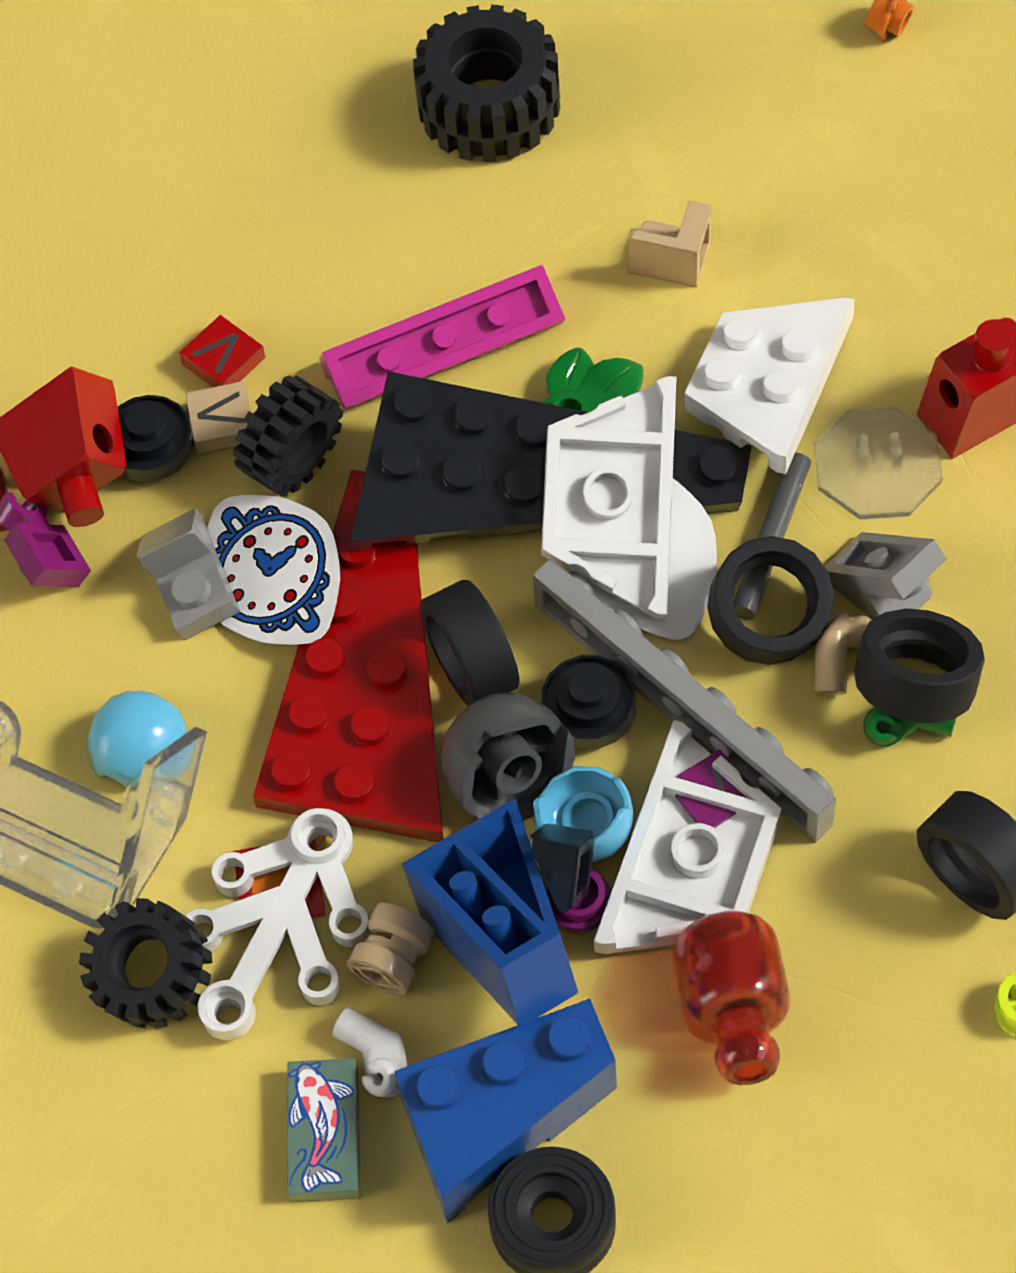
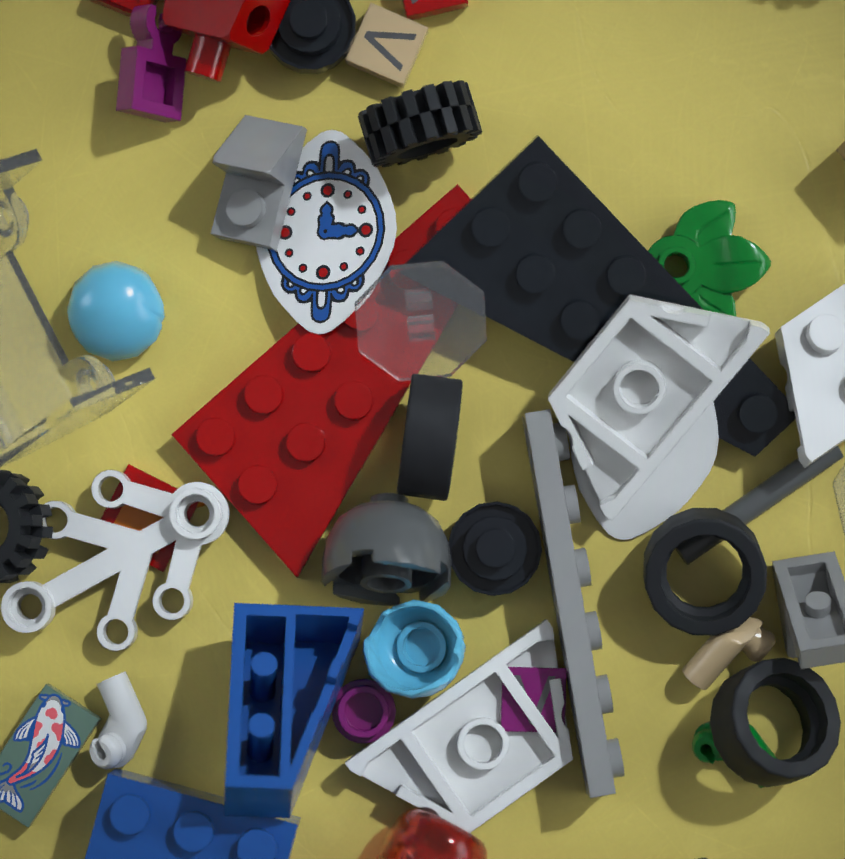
camera: 25 degrees right, 25 degrees up
(391, 949) = (172, 655): tan wheel -> none
(393, 560) = (420, 320): none -> clear piece
(443, 336) = (626, 108): dark pink hinge -> none
(565, 862) = (358, 696): black slope -> none

